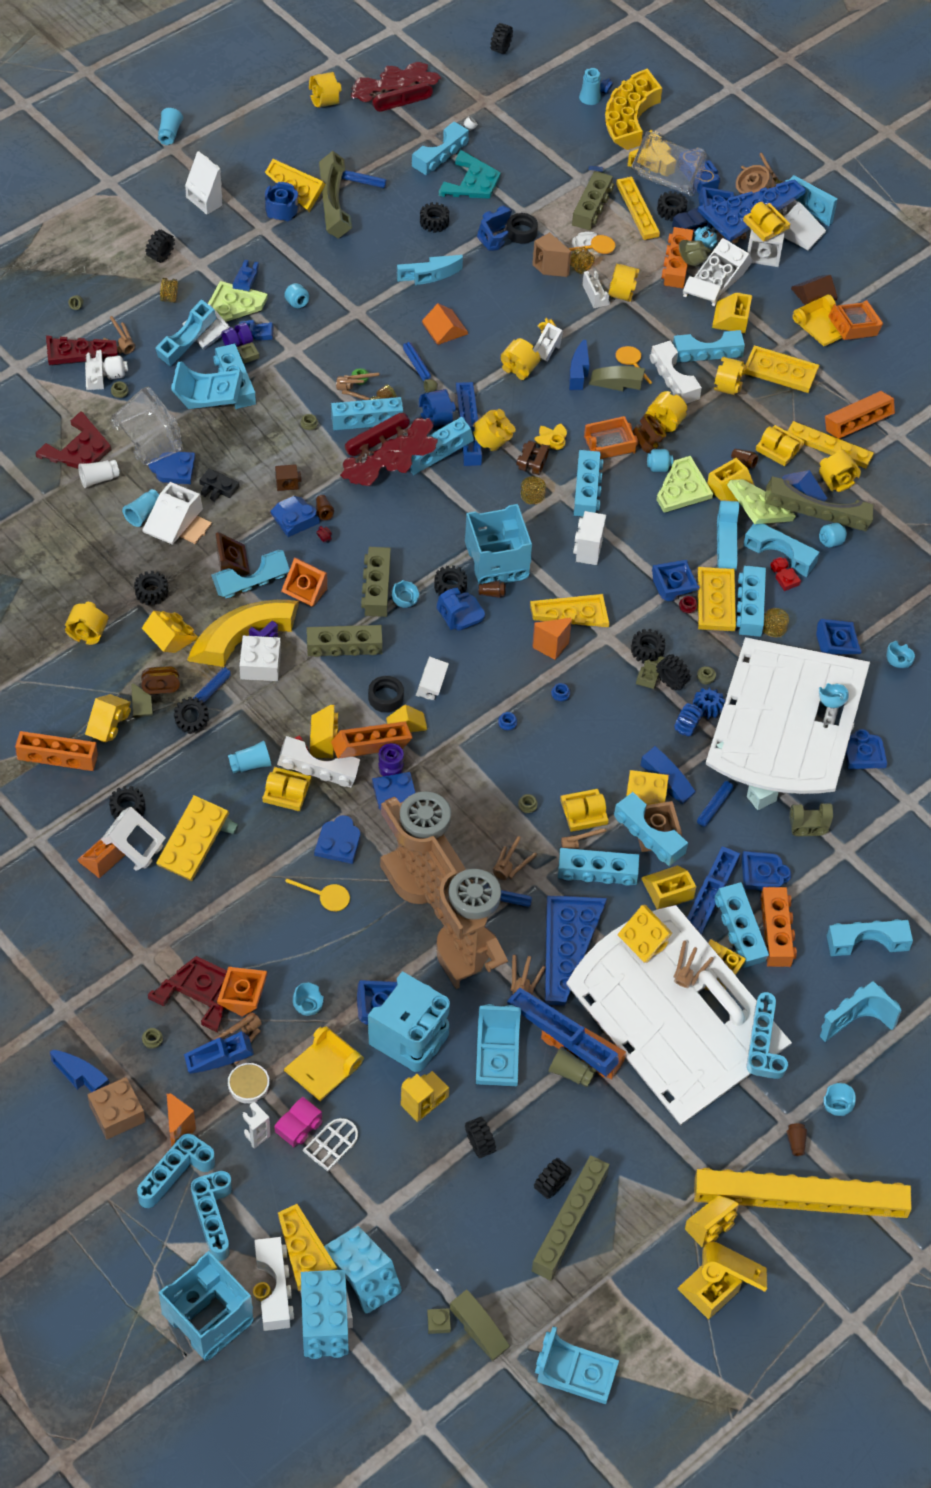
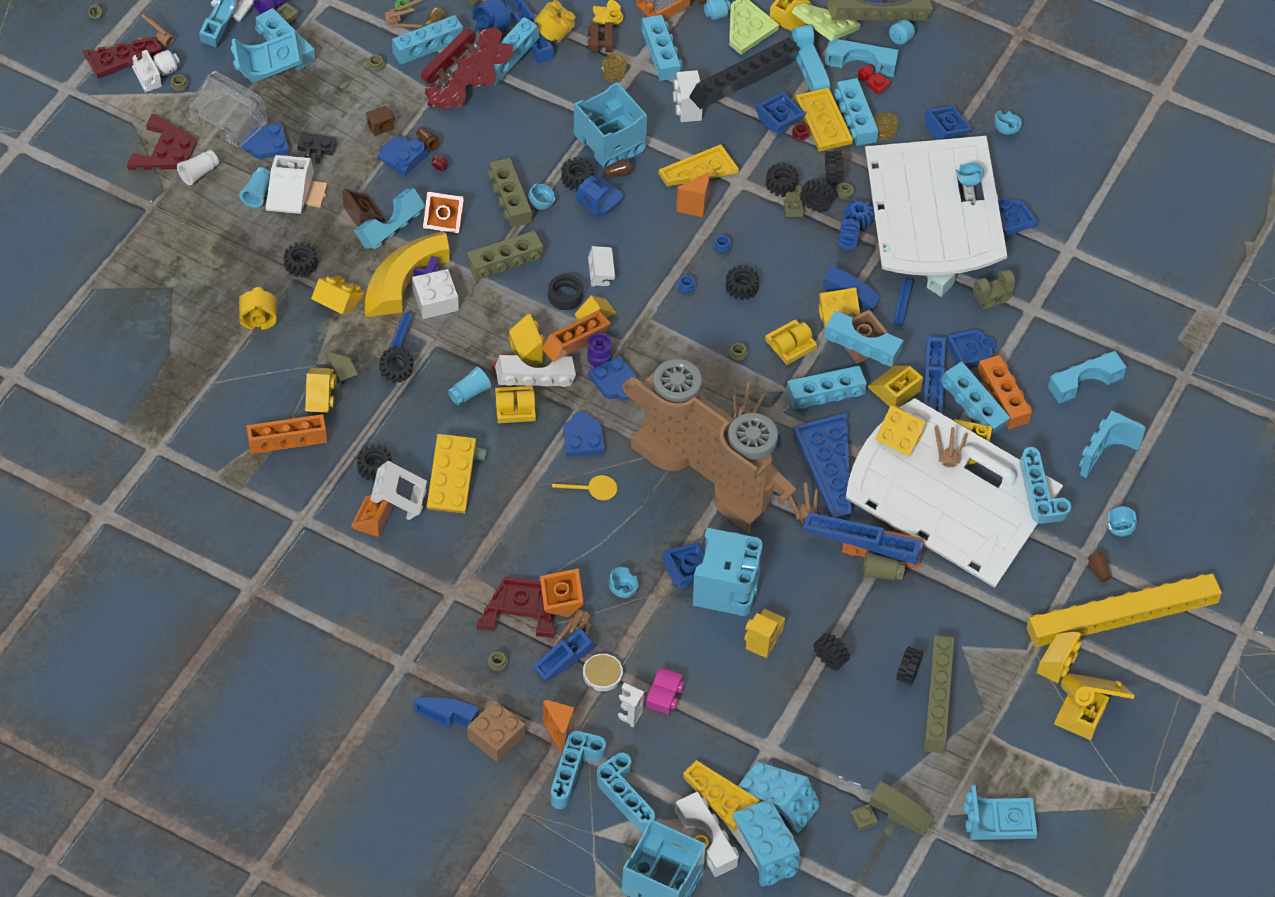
camera: 20 degrees left, 0 degrees up
(160, 680) = (352, 340): reddish brown brick -> none
(324, 1063) = (663, 633): yellow door -> none
(324, 1144) = (703, 707): white window -> none
(498, 1045) = (809, 569): medium azure bracket -> none
(562, 727) = (742, 290): none -> black tyre
(572, 841) = (794, 373): medium nougat plant -> none
(652, 530) = (744, 73): none -> black brick
(703, 648) = (834, 167): none -> black tyre

